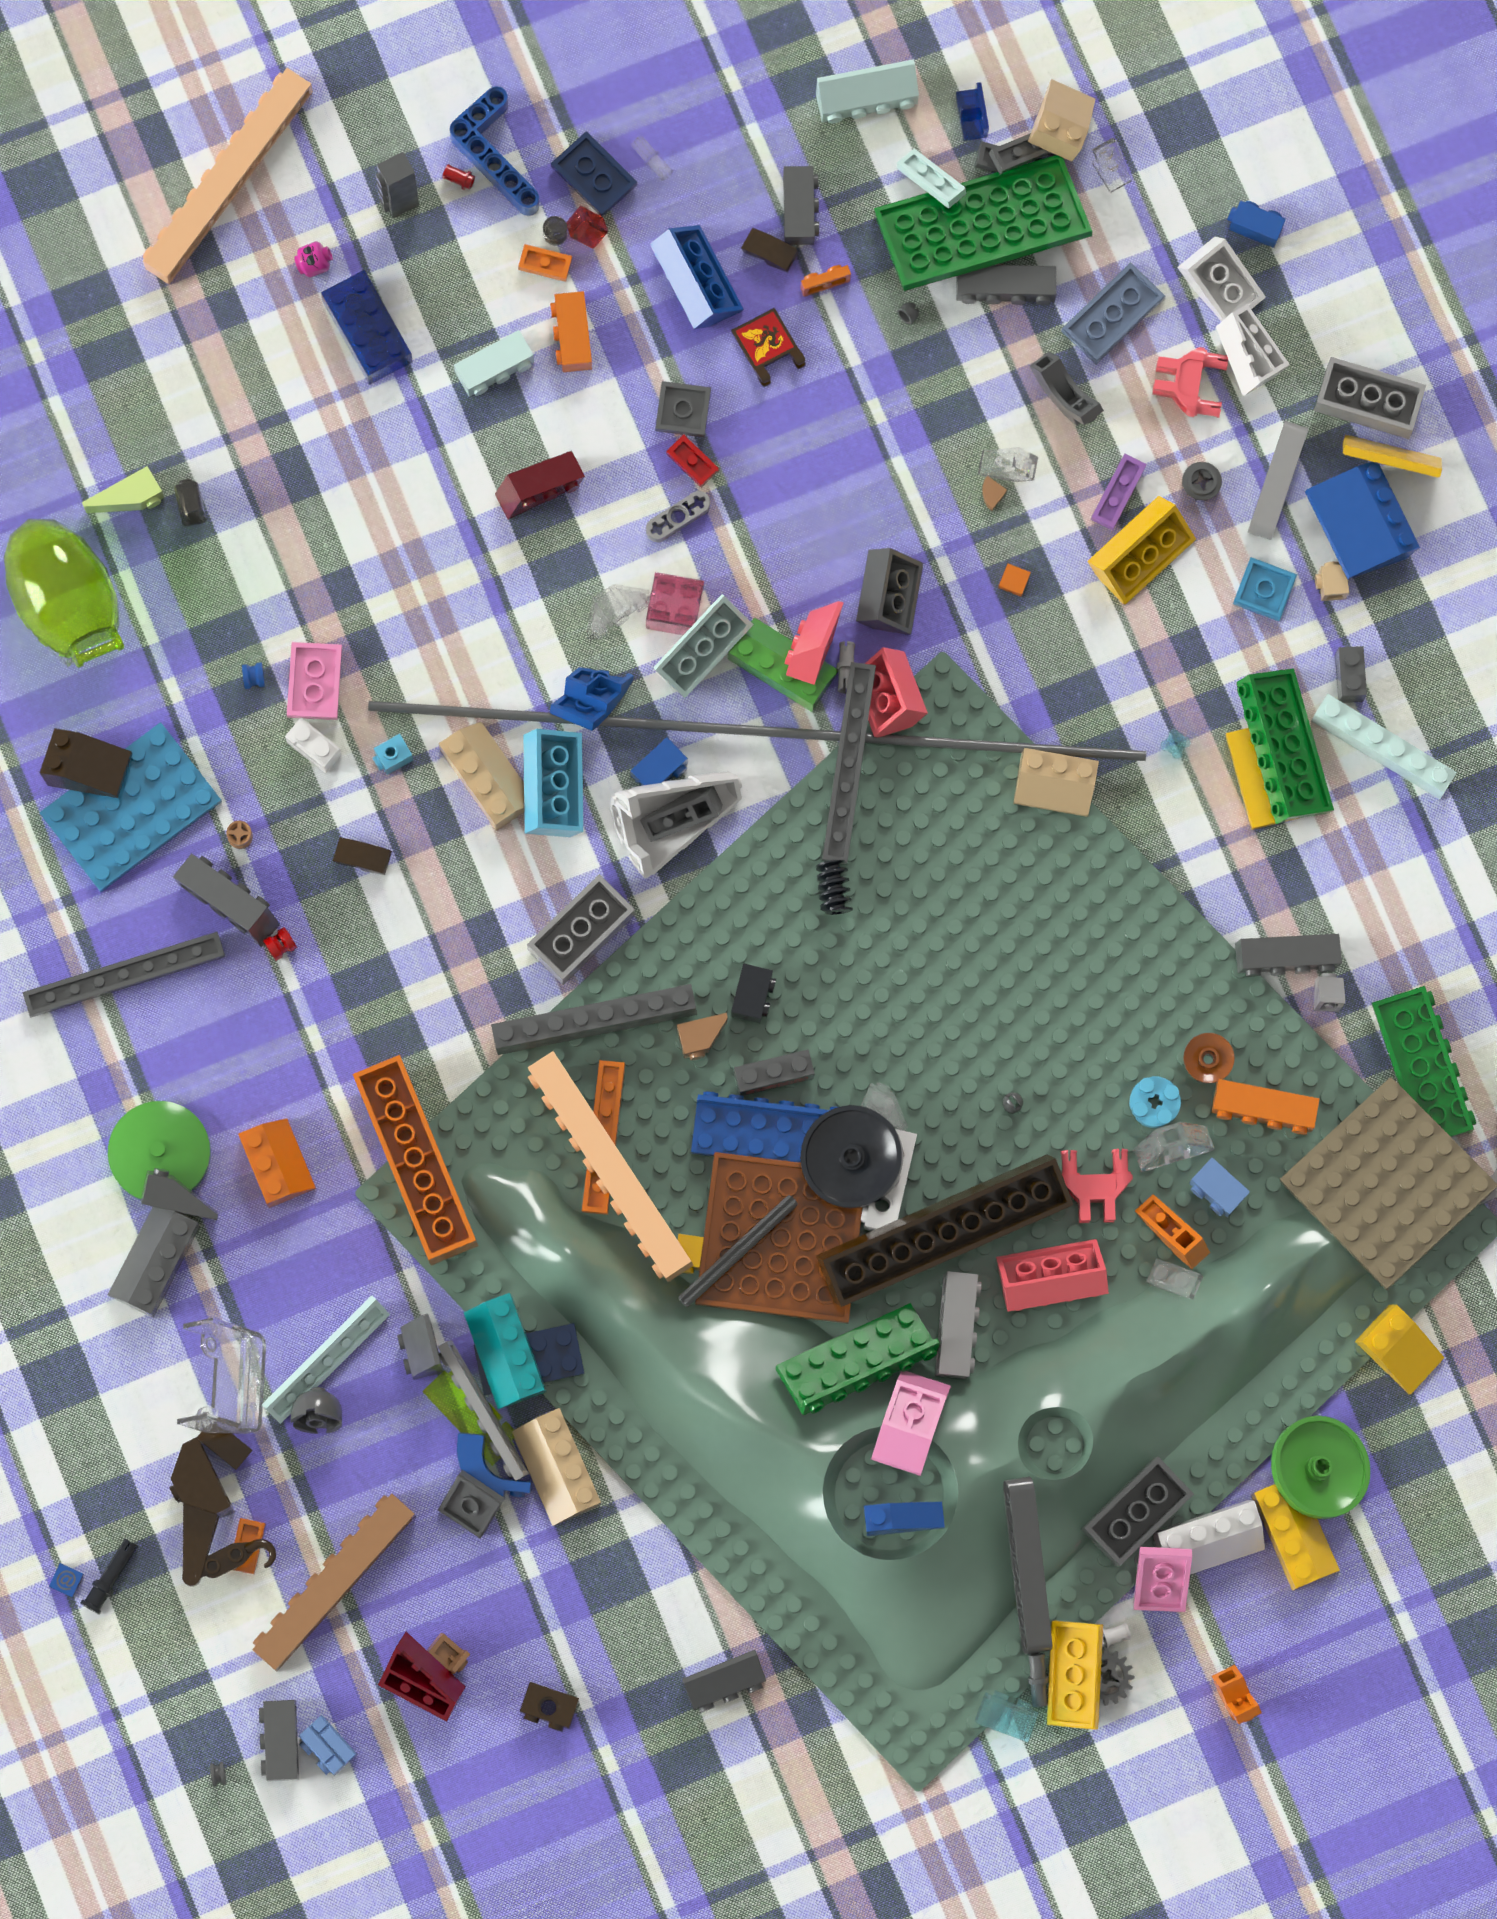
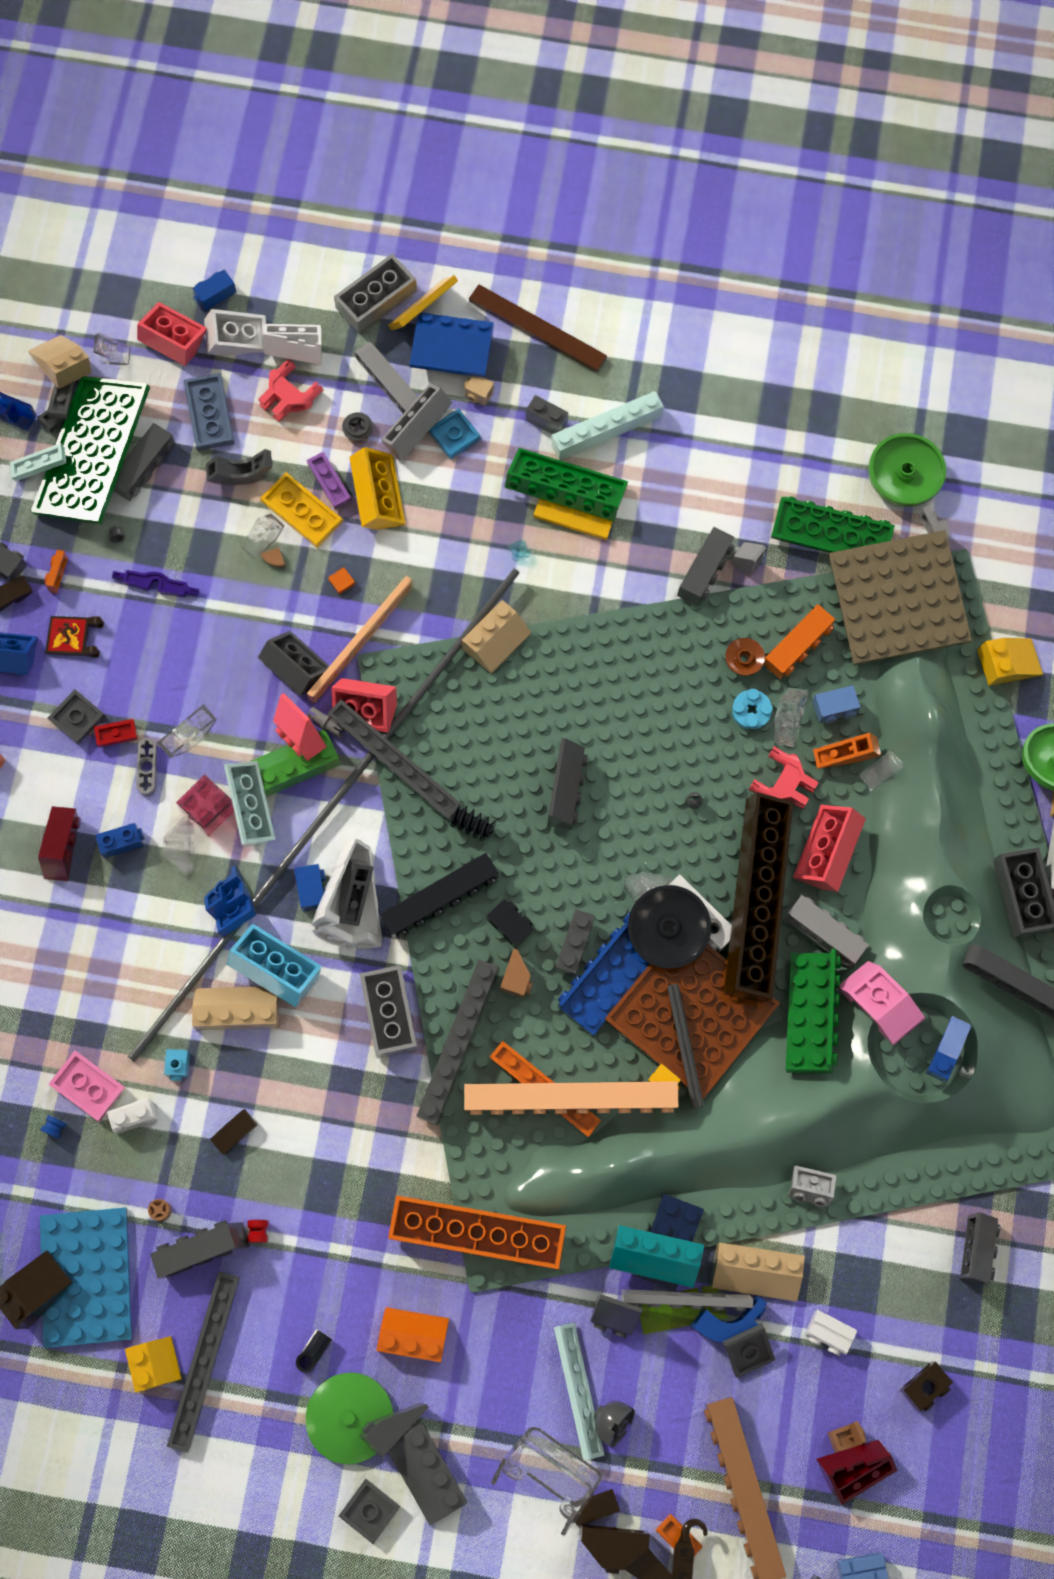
camera: 55 degrees left, 5 degrees down
(84, 1227) = (369, 1511): none -> dark grey plate
(90, 927) = (153, 1364): none -> yellow slope
(202, 1074) = (314, 1349): none -> black piece
(541, 1577) = (830, 1332): none -> white brick
(582, 542) = (120, 840): none -> blue brick
(677, 1469) = (812, 1186): none -> light grey bracket
(734, 903) = (439, 896): none -> black brick
(738, 534) = (188, 733): none -> clear slope
(877, 378) = (145, 580): none -> dark purple piece
(938, 957) = (566, 785): none -> dark grey slope
(961, 642) = (360, 639): none -> light nougat tile
(1066, 485) = (301, 510): none -> yellow tile
(1173, 213) = (170, 333): none -> coral slope
(1246, 540) = (416, 421): none -> light grey brick
(1453, 598) = (537, 328): none -> reddish brown tile

